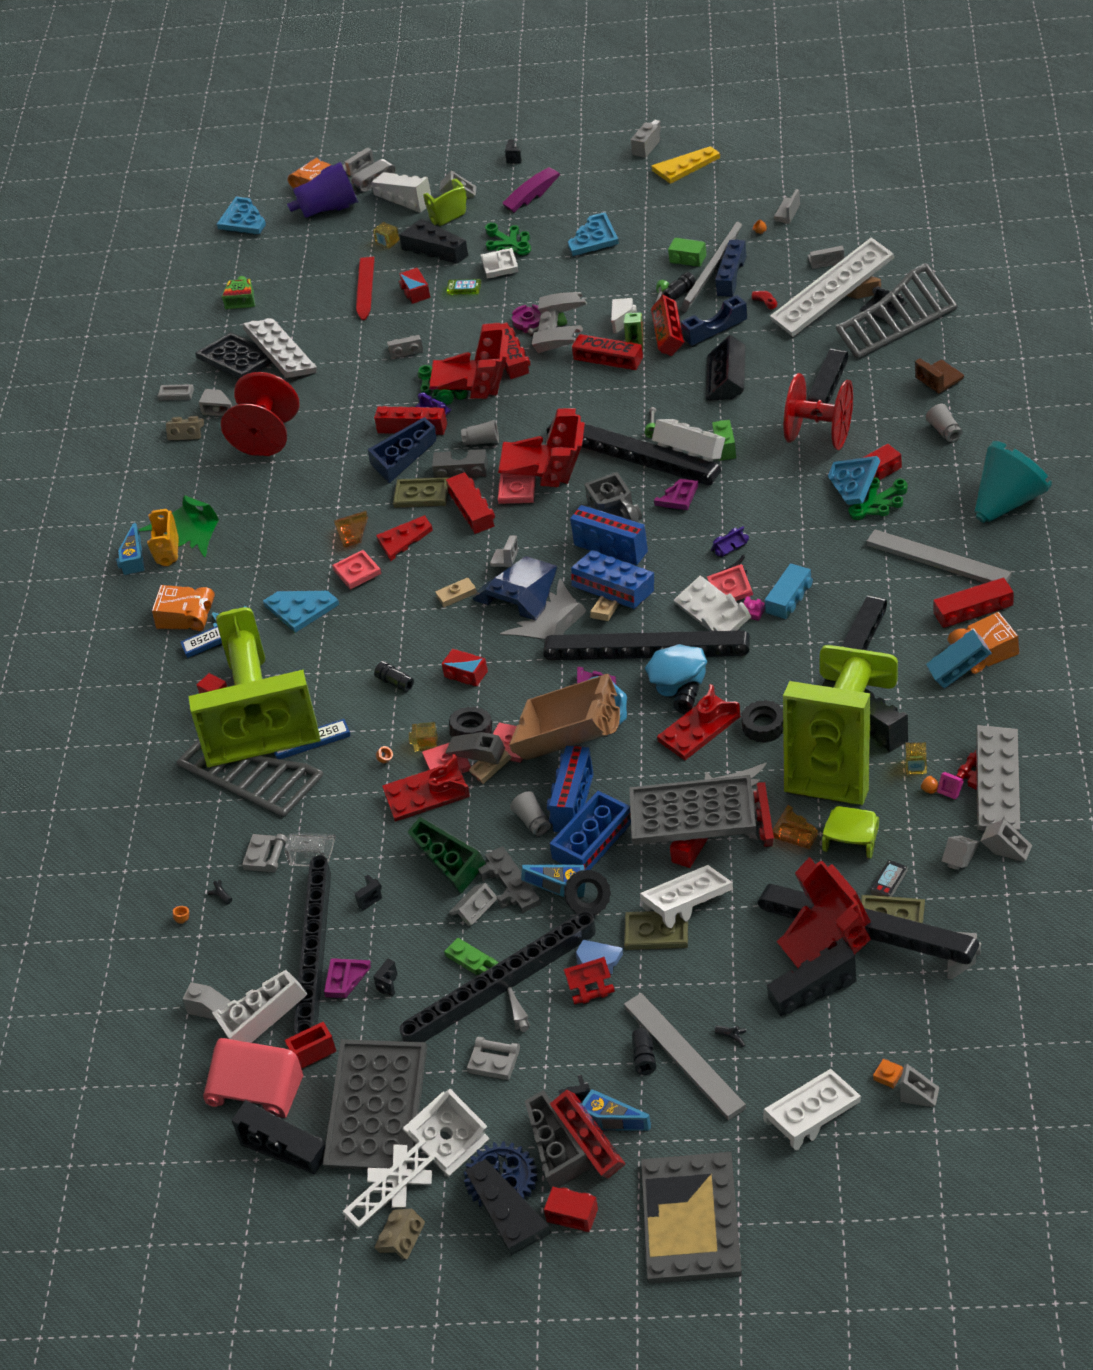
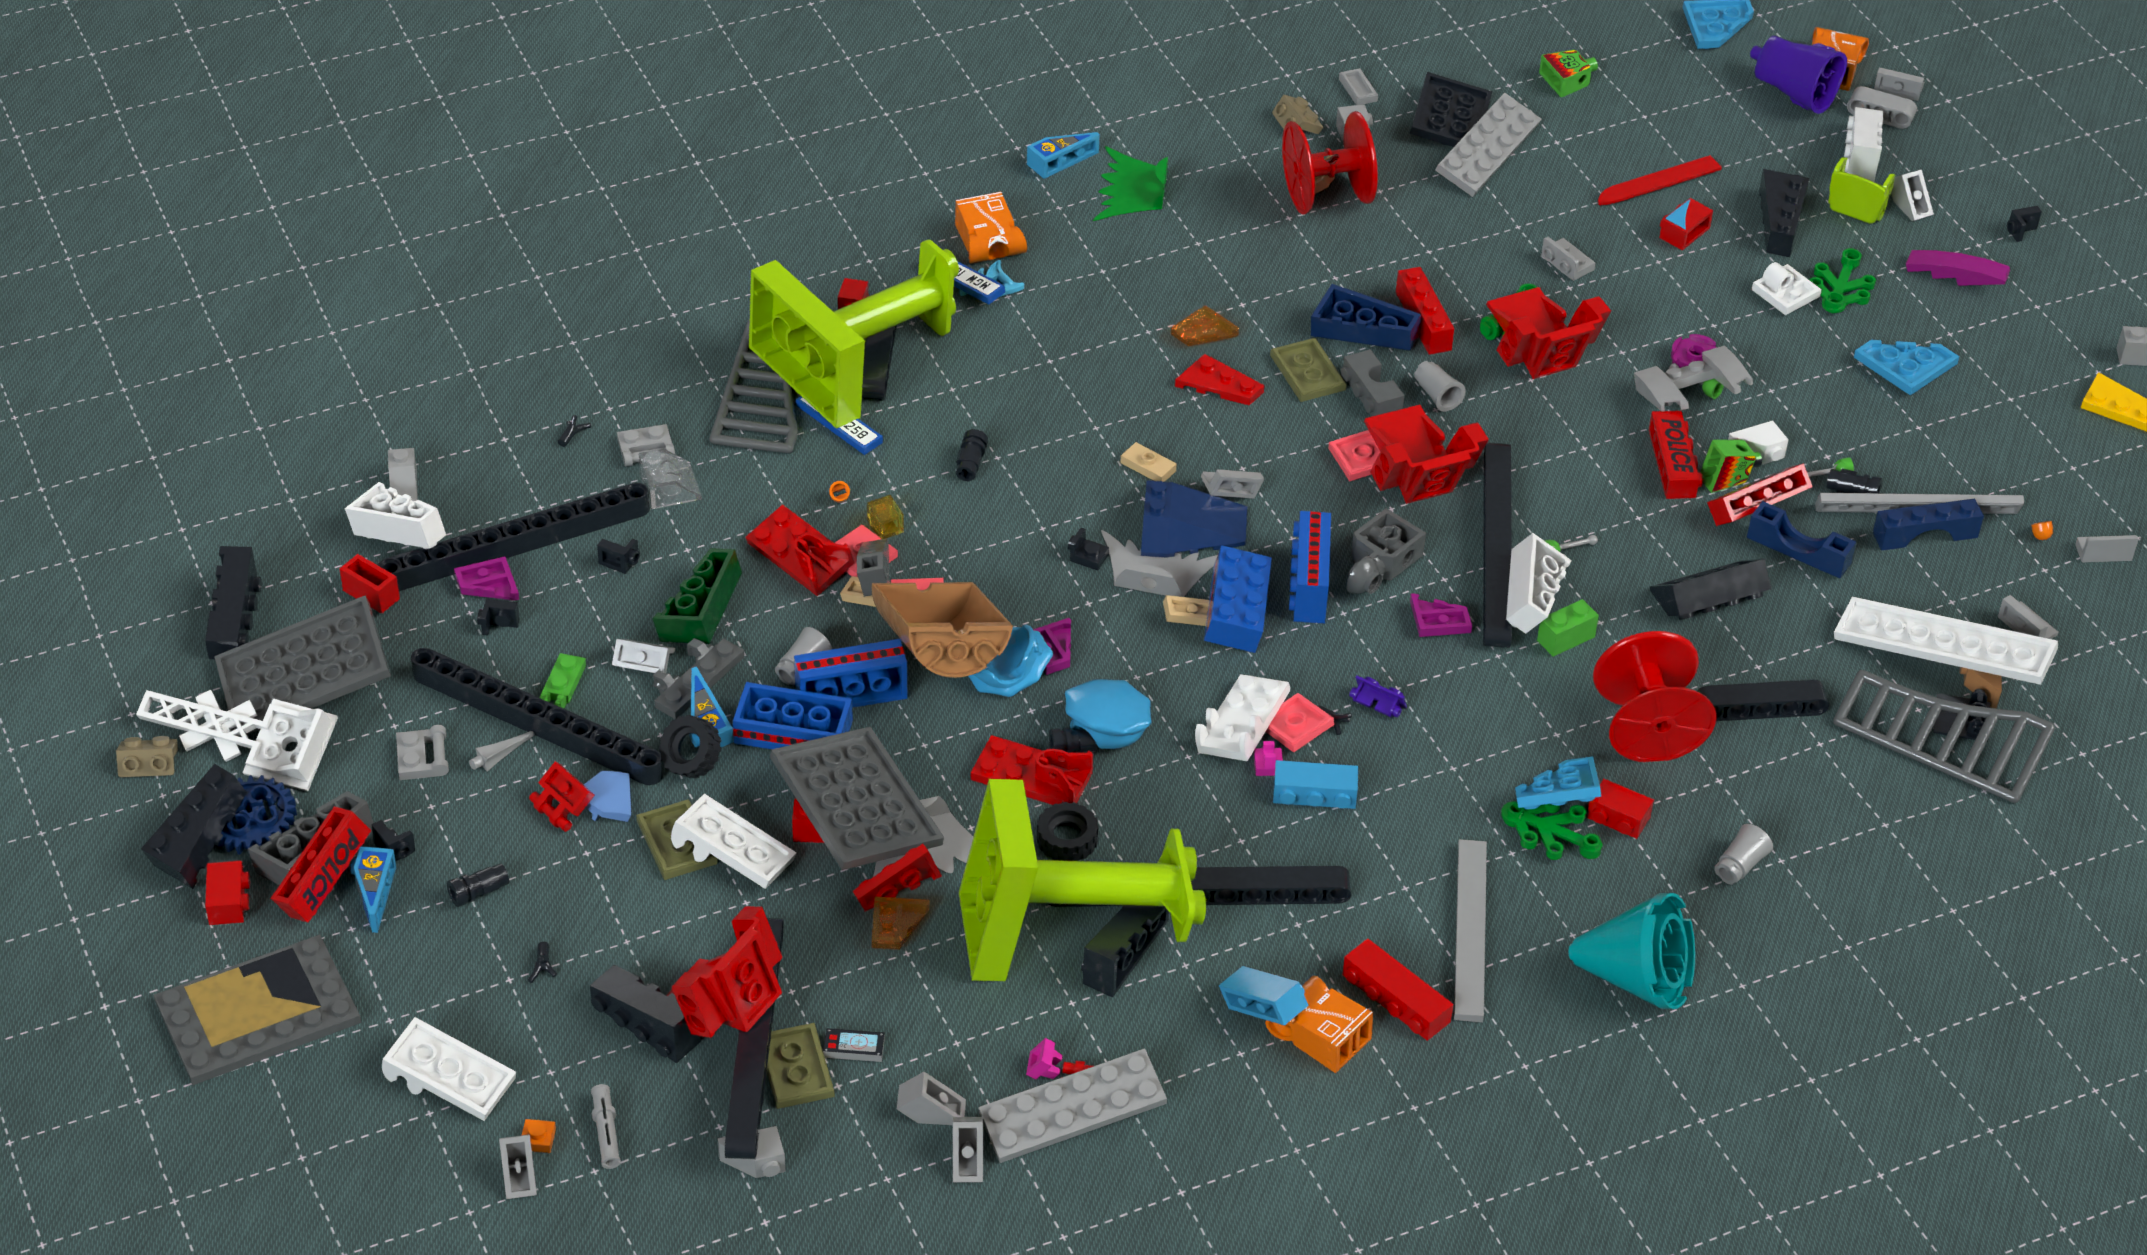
camera: 55 degrees right, 0 degrees up
(162, 546) = (1087, 170): light orange piece -> none
(181, 914) = (521, 403): orange hinge -> none
(253, 1074) = (304, 554): coral windscreen -> none
(300, 607) = (1049, 333): dark azure plate -> none
(356, 569) = (1136, 357): coral plate -> none
(386, 235) = (1767, 158): clear yellow brick -> none
(428, 402) = (1468, 322): dark purple hinge -> none
(464, 286) = (1720, 273): clear neon green tile -> none
(464, 667) = (1017, 513): red brick -> none
(469, 715) = (926, 537): black tyre -> none
(470, 502) = (1307, 418): red brick -> none
(516, 362) = (1616, 357): red brick -> none
(519, 644) = (1086, 551): none -> black bracket
(643, 644) = (1145, 675): black beam -> none
(685, 1056) = (489, 928): light grey tile -> none
(687, 252) = (1933, 468): bright green brick -> none
(765, 297) = (1893, 585): red arm -> none
(852, 827) = (910, 976): lime piece -> none
(891, 1029) = (601, 1100): none -> light grey pin
(916, 758) = (1071, 1008): clear yellow brick -> none
(929, 785) = (1034, 1036): orange hinge -> none
(938, 375) = (1845, 820): reddish brown bracket -> none

